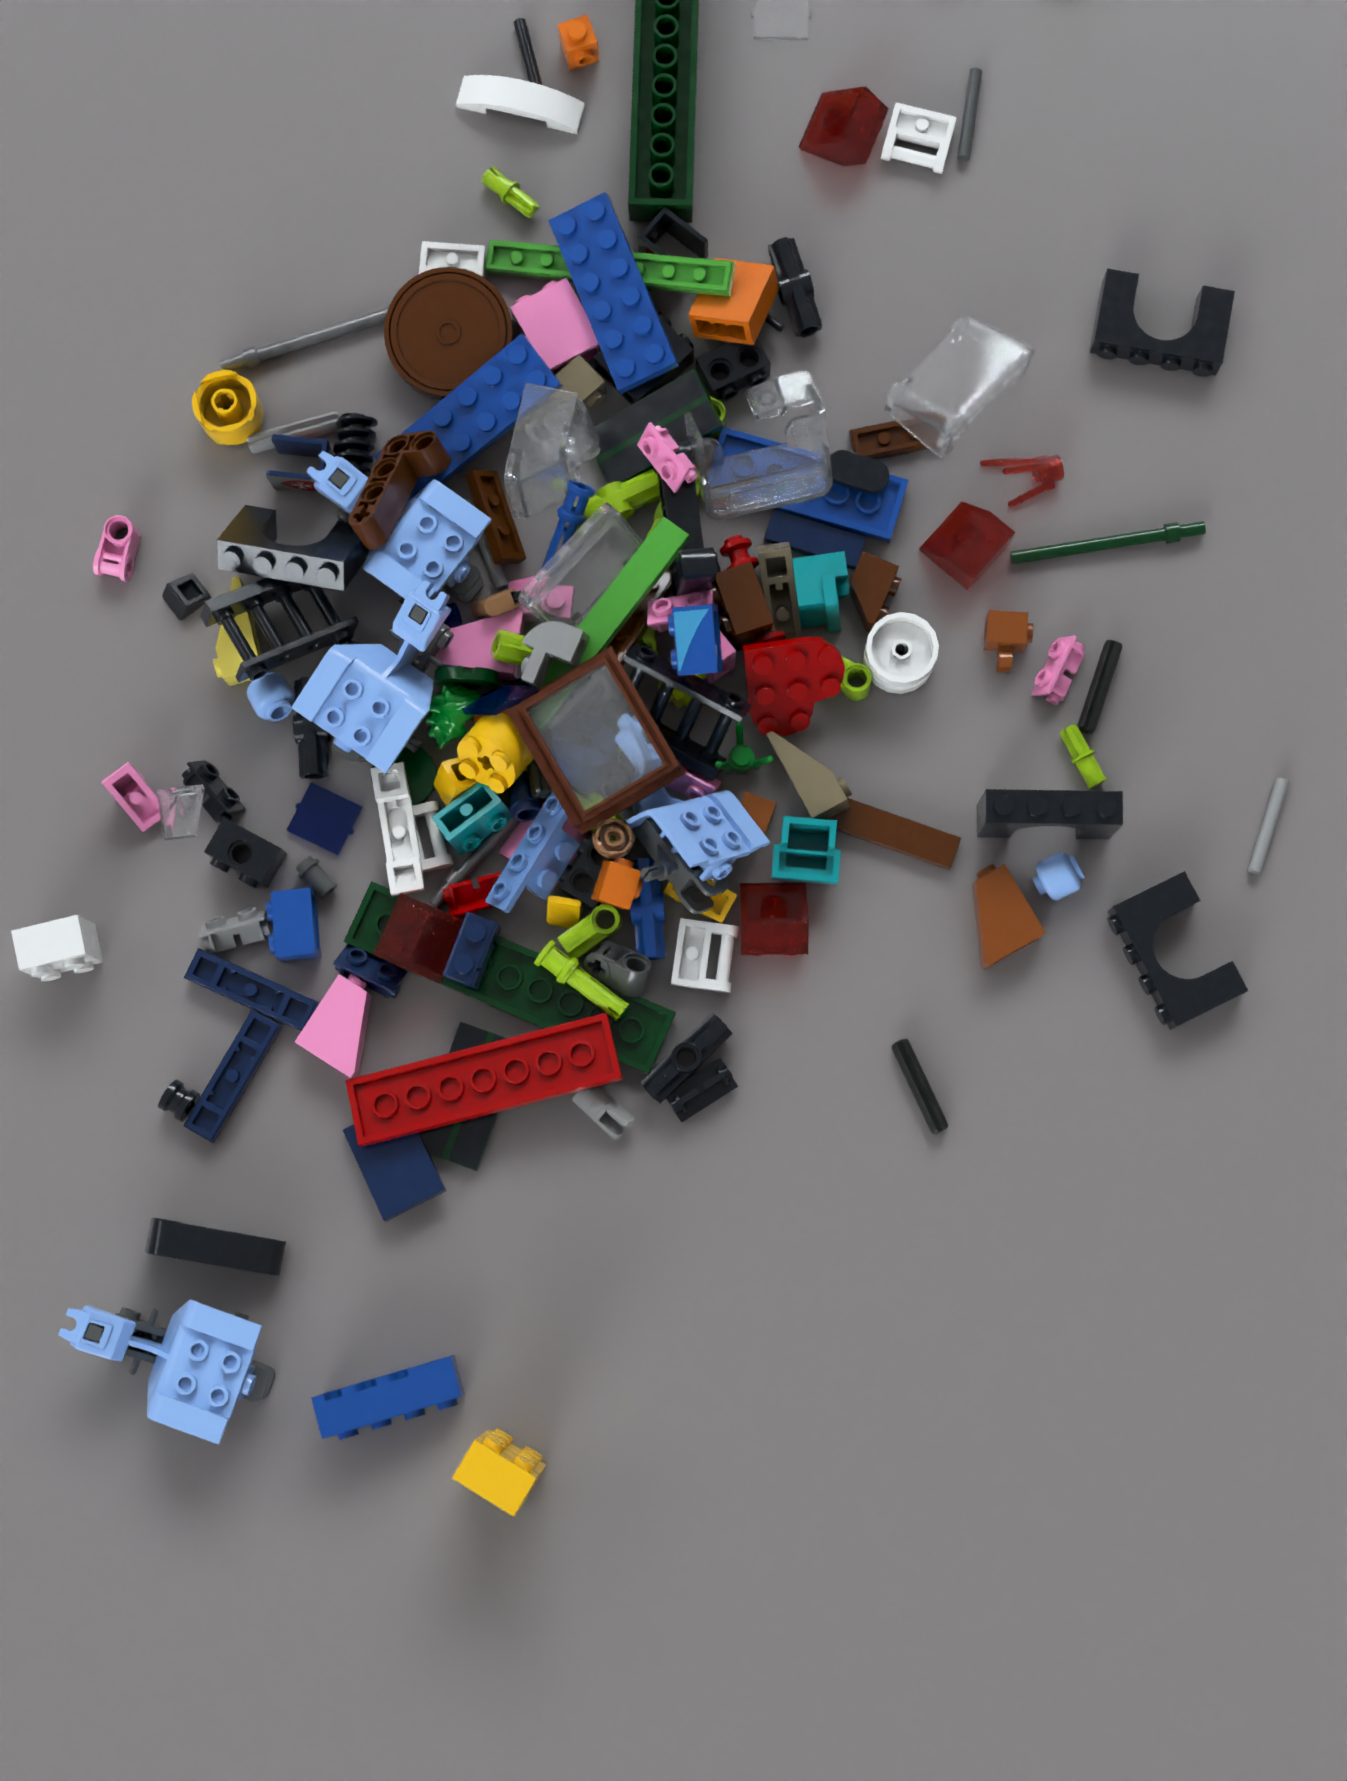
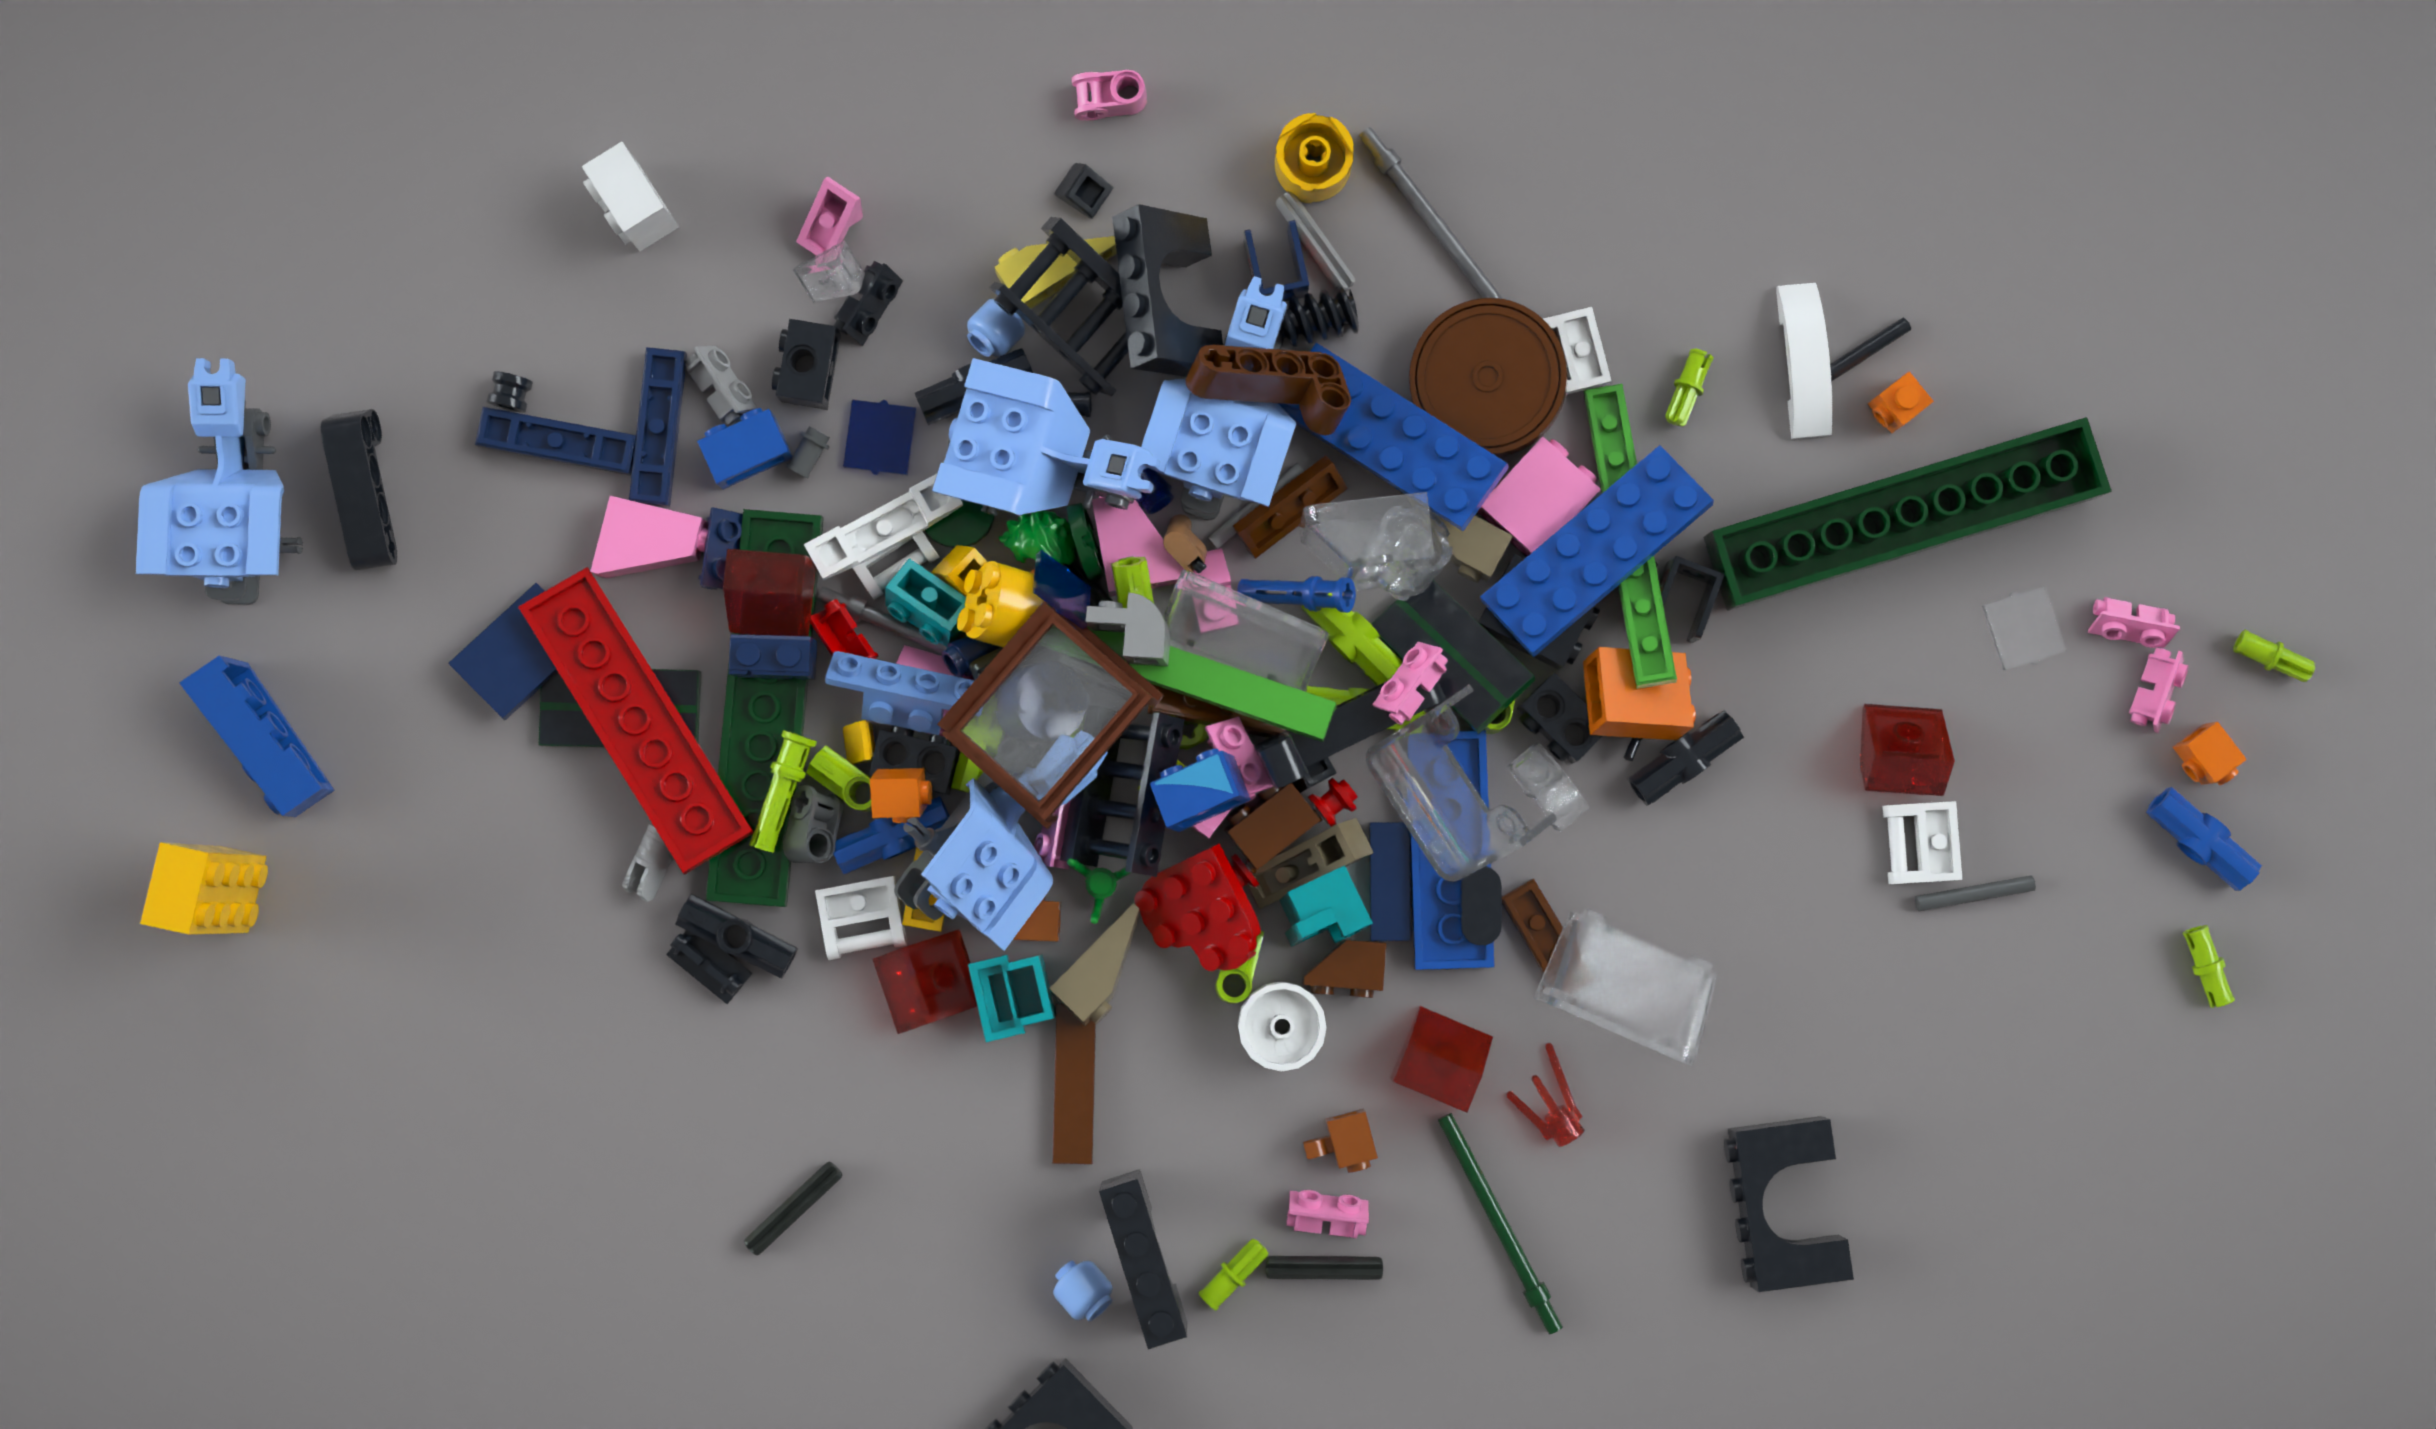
camera: 60 degrees right, 5 degrees up
(613, 828) = (949, 784): medium nougat plate -> none
(1002, 916) = (1014, 1240): dark orange slope -> none

